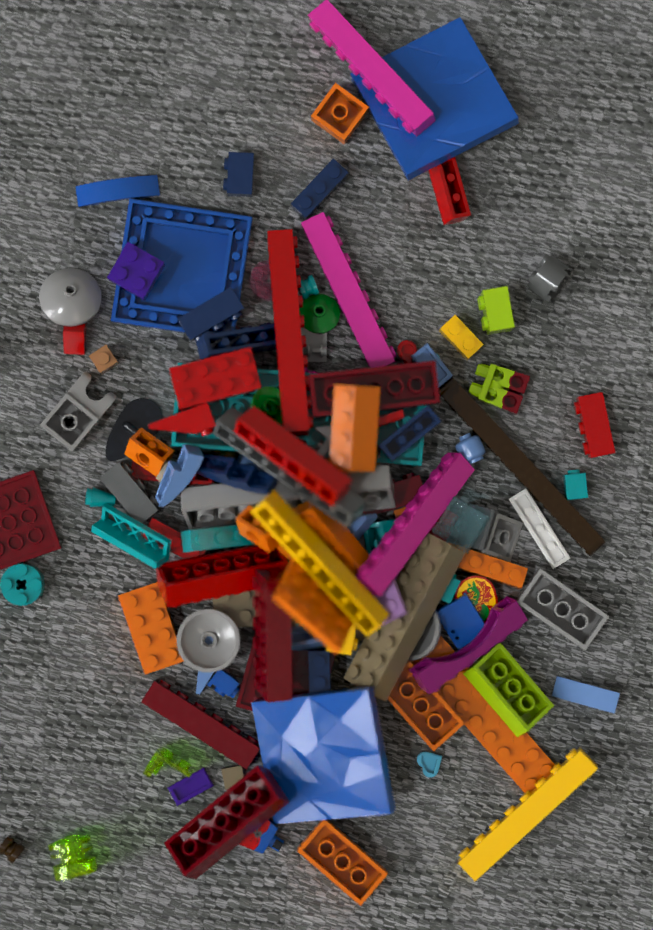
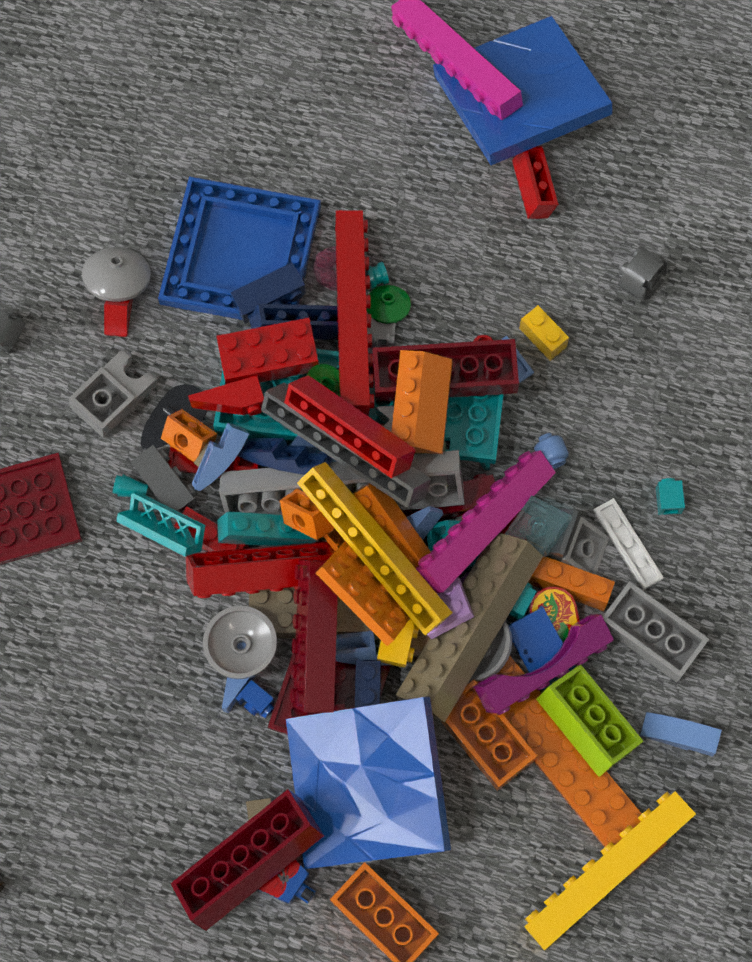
camera: 10 degrees right, 15 degrees down
(10, 584) = (23, 567): teal brick -> none
(72, 857) = (59, 895): clear neon green wheel -> none
(104, 359) = (147, 339): medium nougat brick -> none
(117, 190) = (176, 169): blue slope -> none
(136, 271) = (189, 245): dark purple brick -> none
(151, 628) = (176, 632): orange brick -> none
(167, 757) = (166, 787): clear neon green bracket -> none
(190, 786) = (208, 821): dark purple tile -> none
(200, 724) = (226, 746): dark red brick -> none
(240, 174) = (310, 159): dark blue brick -> none
(319, 189) = (394, 176): dark blue brick -> none
(339, 113) = (420, 102): orange brick -> none
(347, 291) = (417, 272): dark pink brick -> none
(389, 418) = (462, 403): red tile -> none
(409, 433) = (483, 419): dark blue brick -> none
(429, 762) = (493, 806): medium azure tile -> none
(495, 382) = (587, 388): lime hips -> none
(496, 310) = (584, 304): lime brick -> none
(521, 466) = (610, 475): dark brown beam -> none
(594, 425) = (692, 432): red brick -> none

